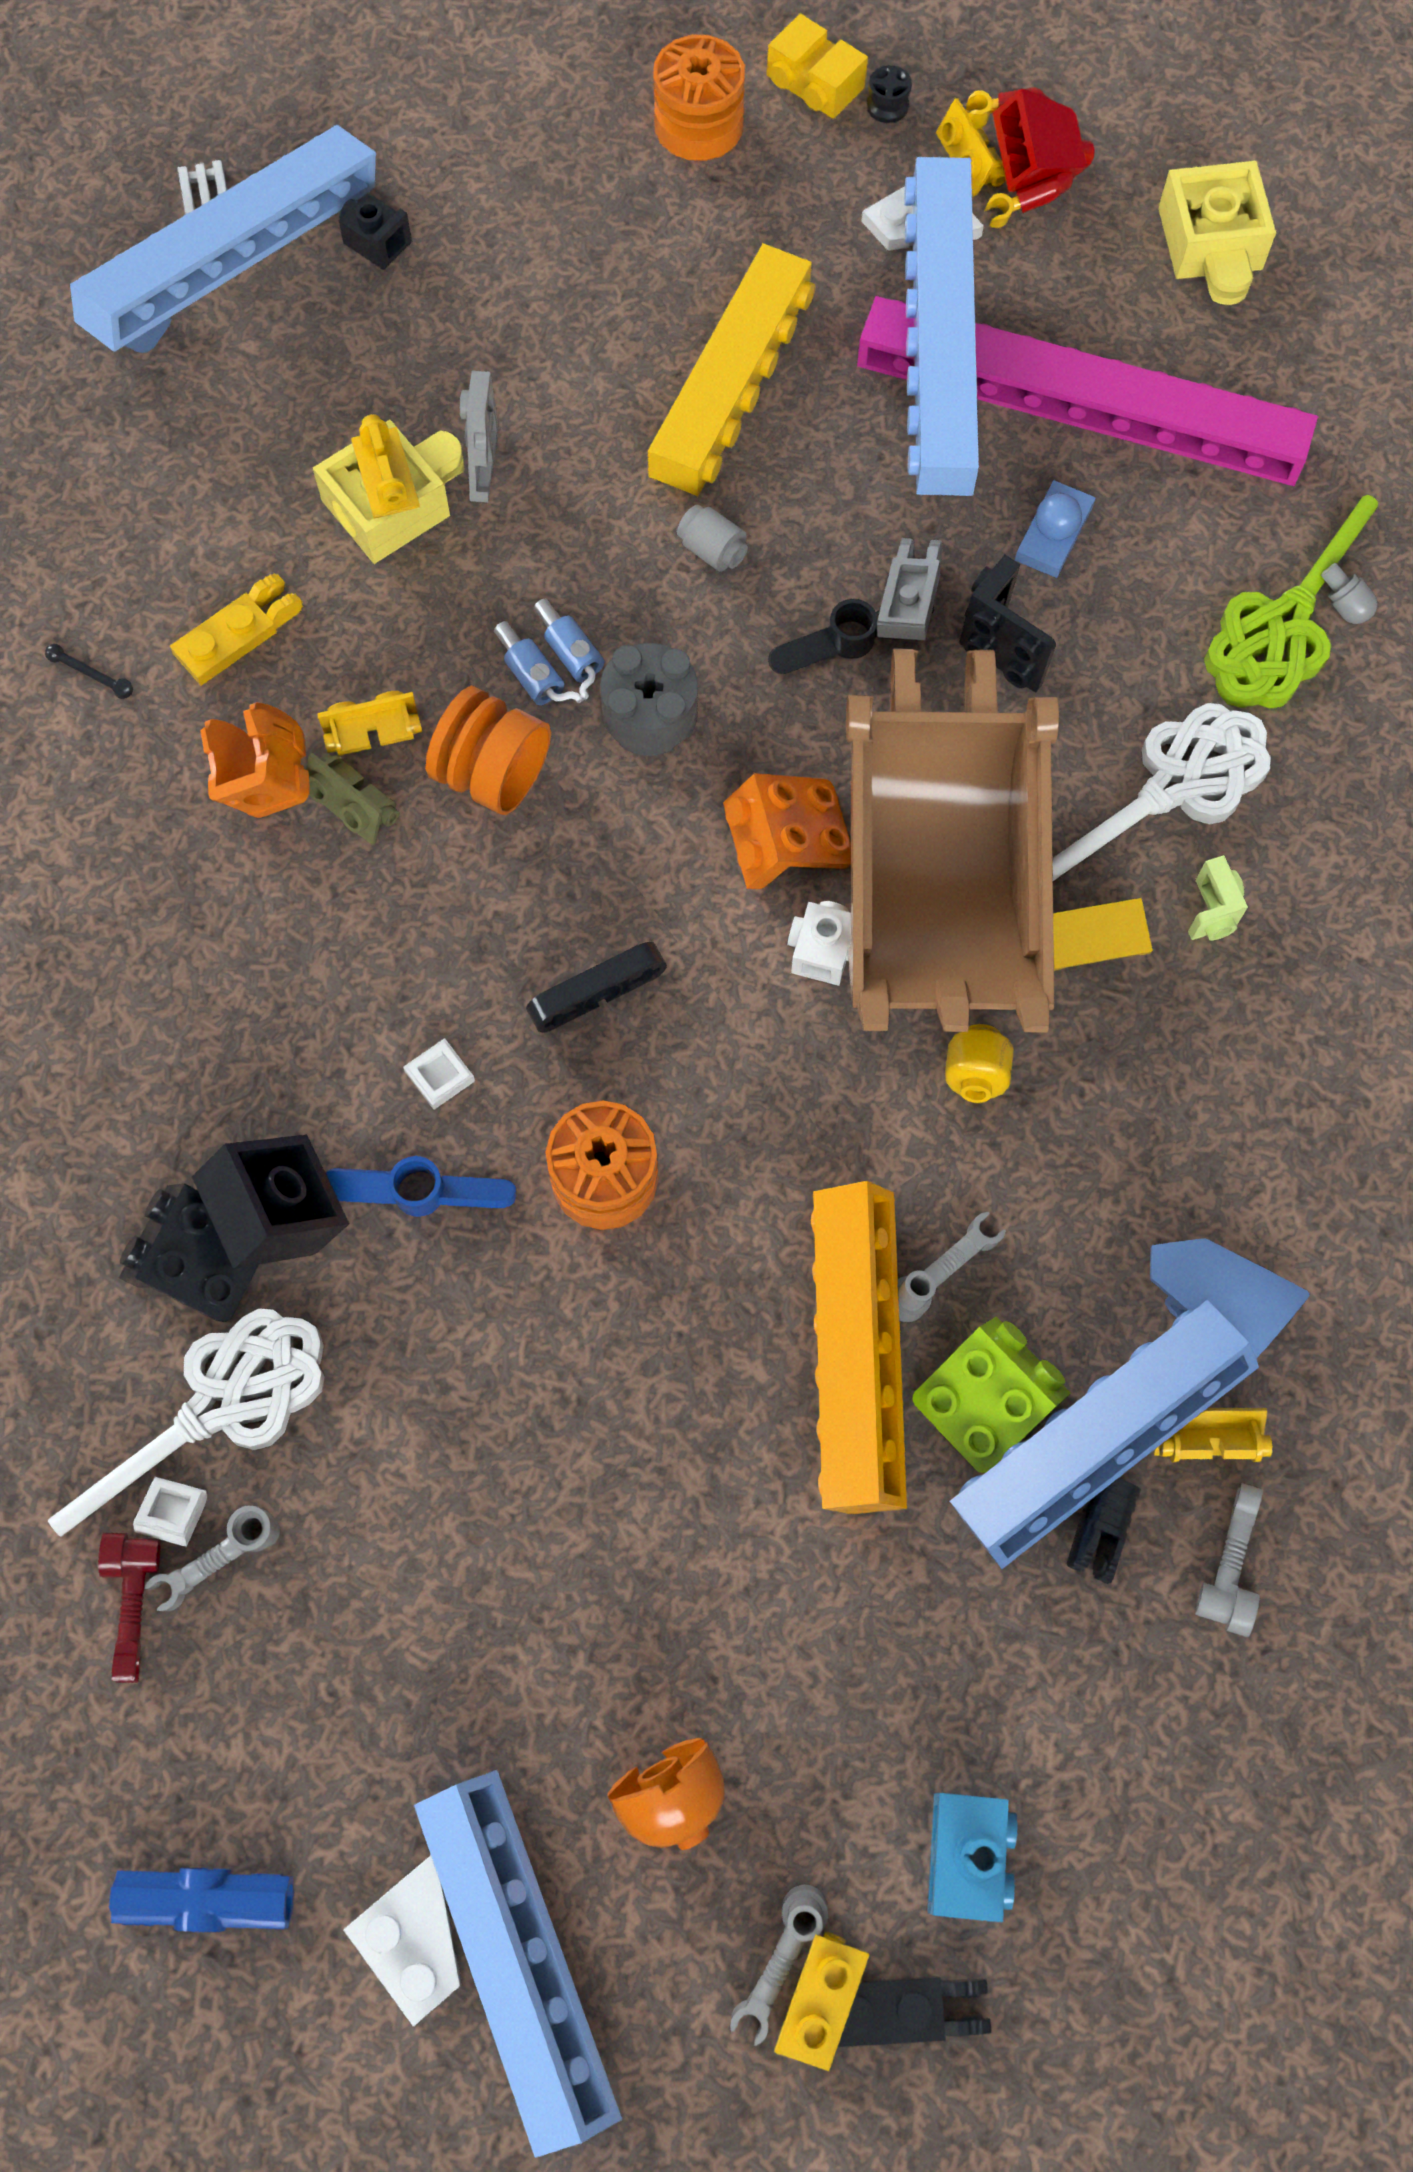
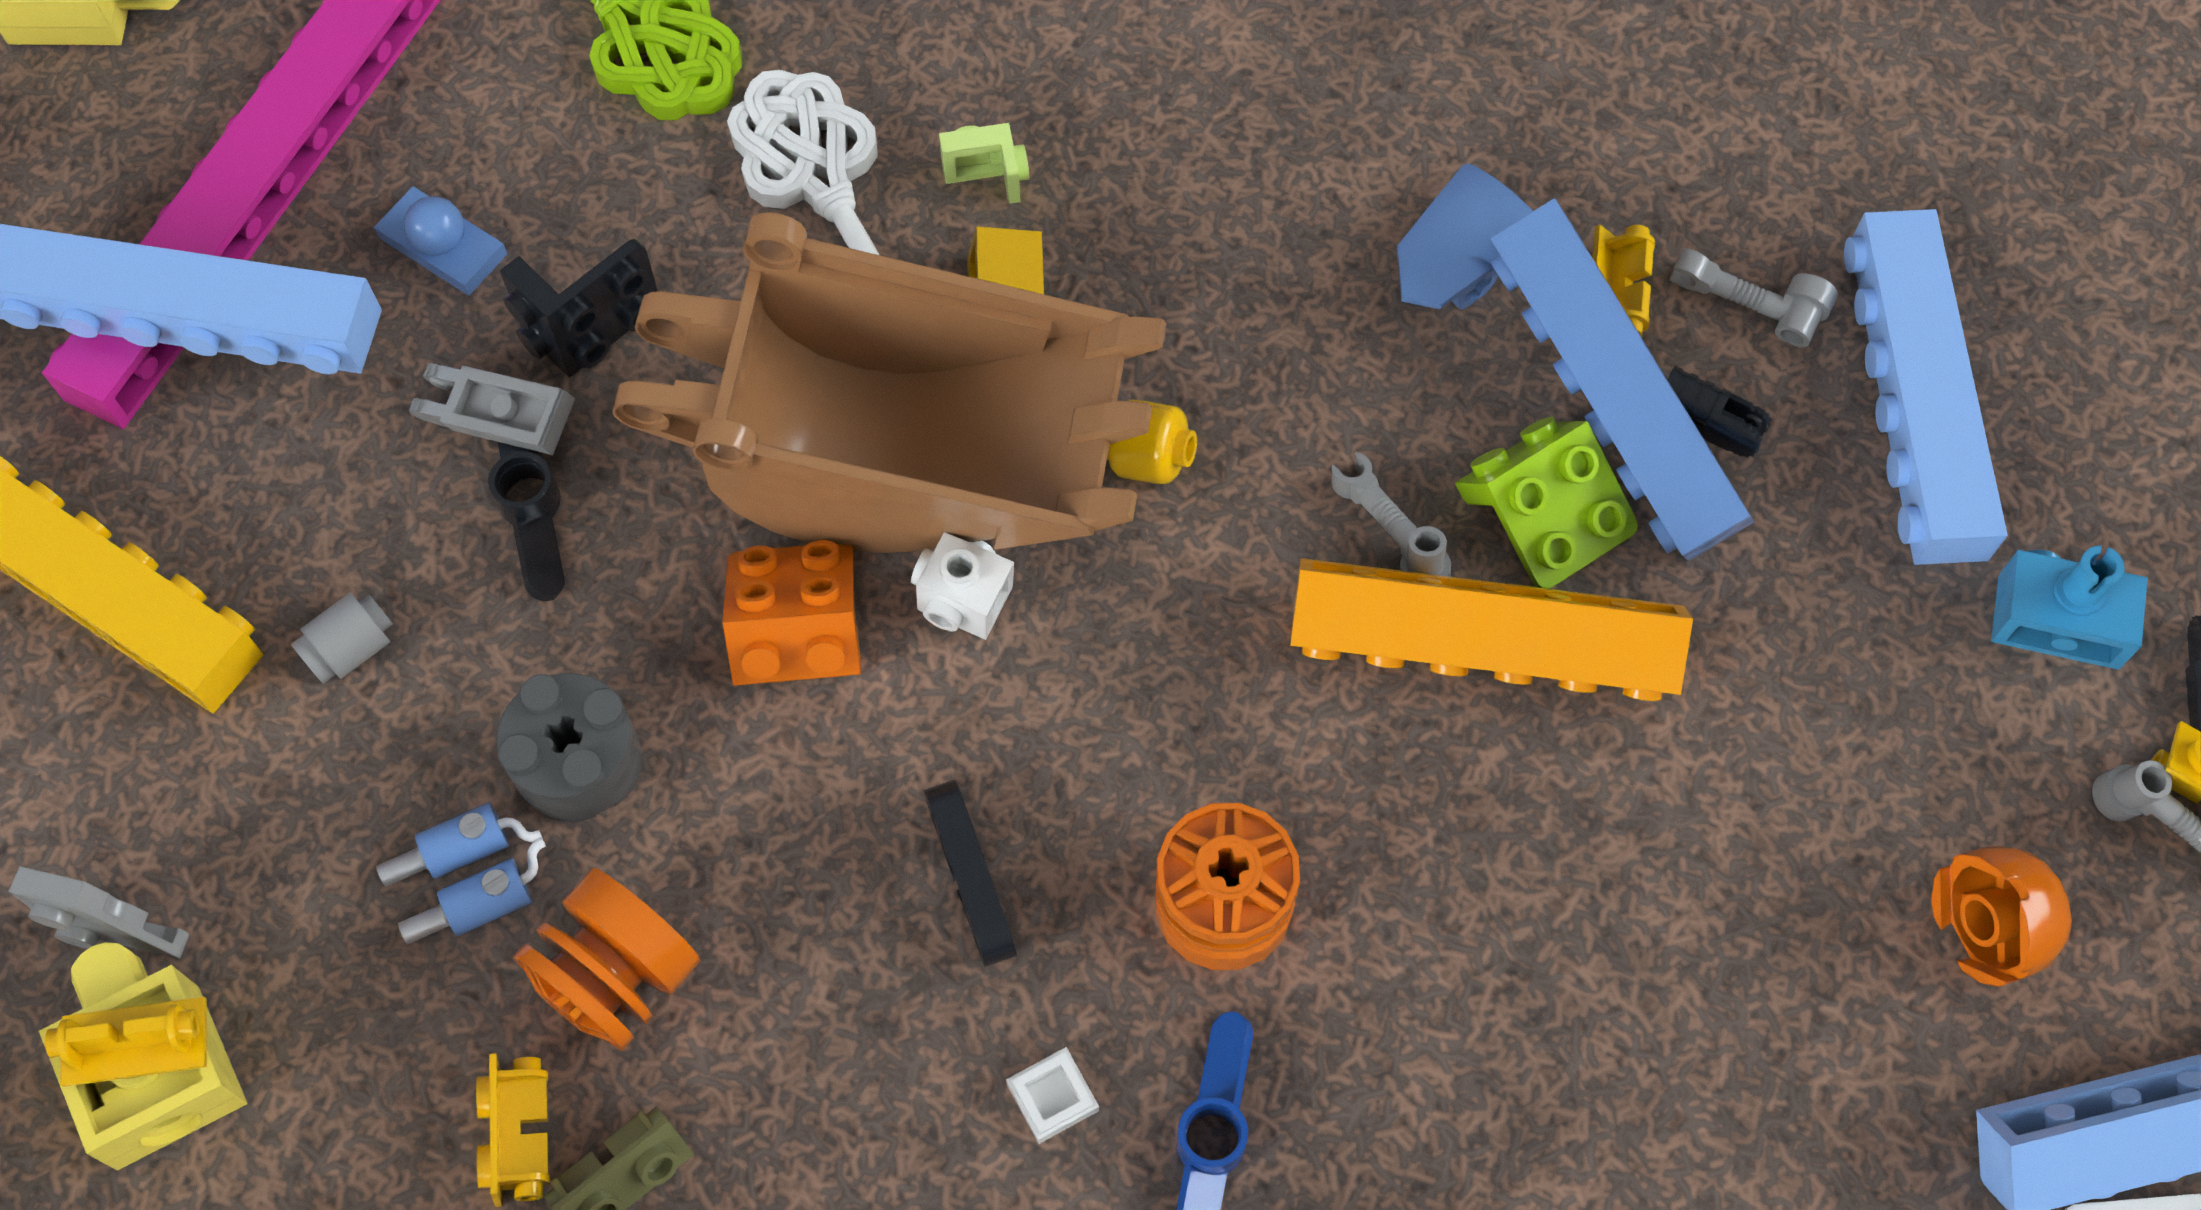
camera: 80 degrees left, 5 degrees down
(1171, 1718) = (1924, 388): none -> light blue brick

